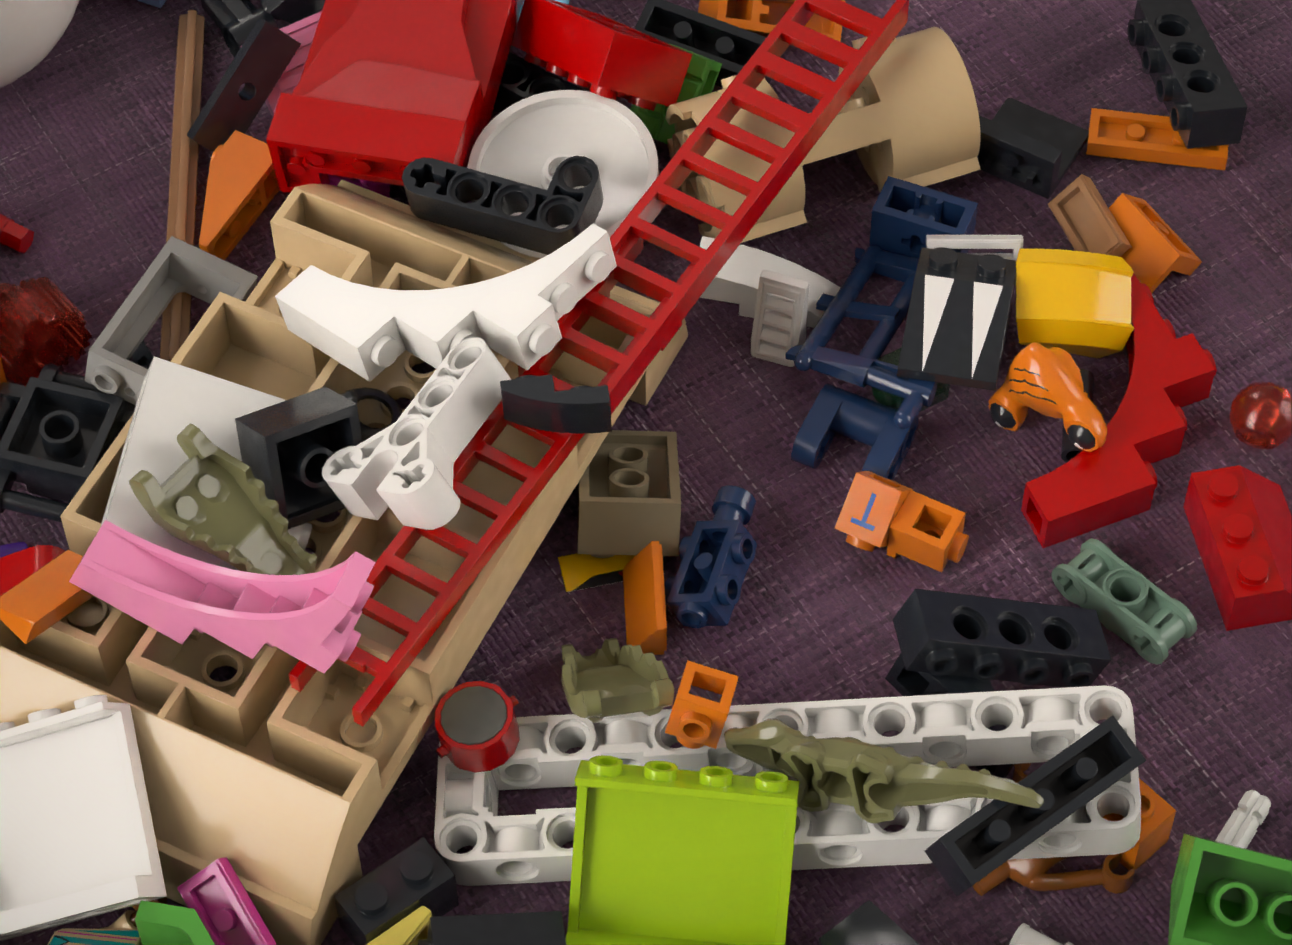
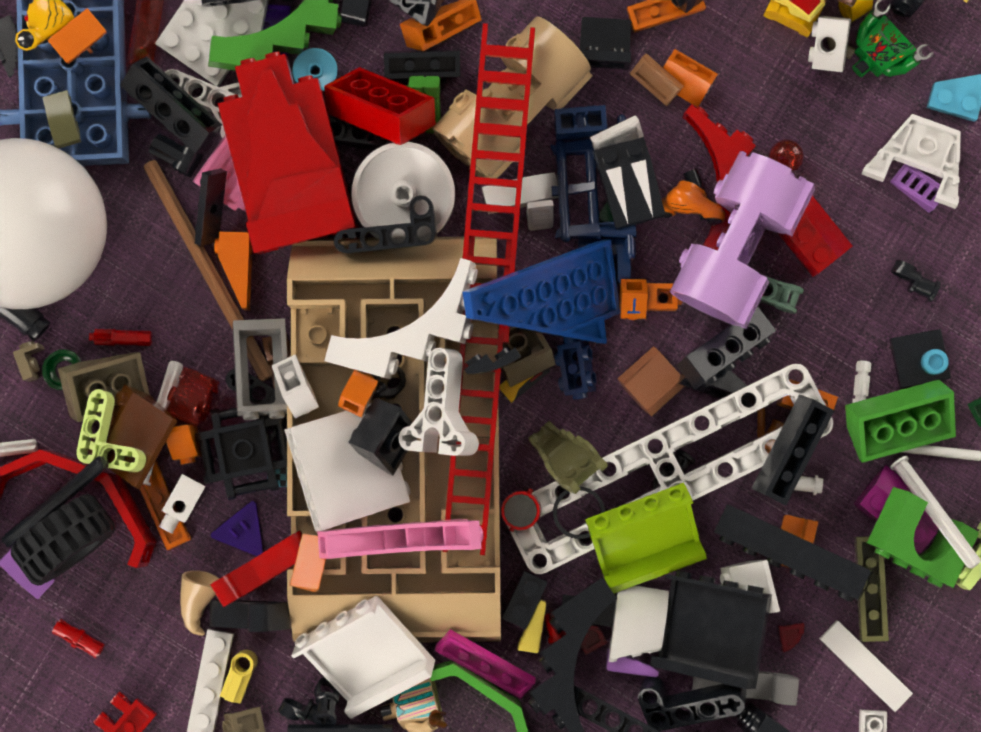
camera: 25 degrees left, 30 degrees up
(202, 327) = (295, 386): none -> white slope
(222, 510) = (369, 490): olive animal -> none
(299, 366) = (358, 393): none -> orange brick
(550, 748) = (555, 512): none -> black piece
(646, 600) = (552, 395): orange slope -> none
(698, 719) = (621, 462): orange brick -> none
(747, 408) = (555, 297): none -> blue wing
(836, 656) = (651, 381): none -> nougat slope
(864, 774) = (711, 467): olive animal -> none
(1058, 493) = (759, 197): none -> lavender cylinder
(1073, 301) = (674, 138): yellow slope -> none

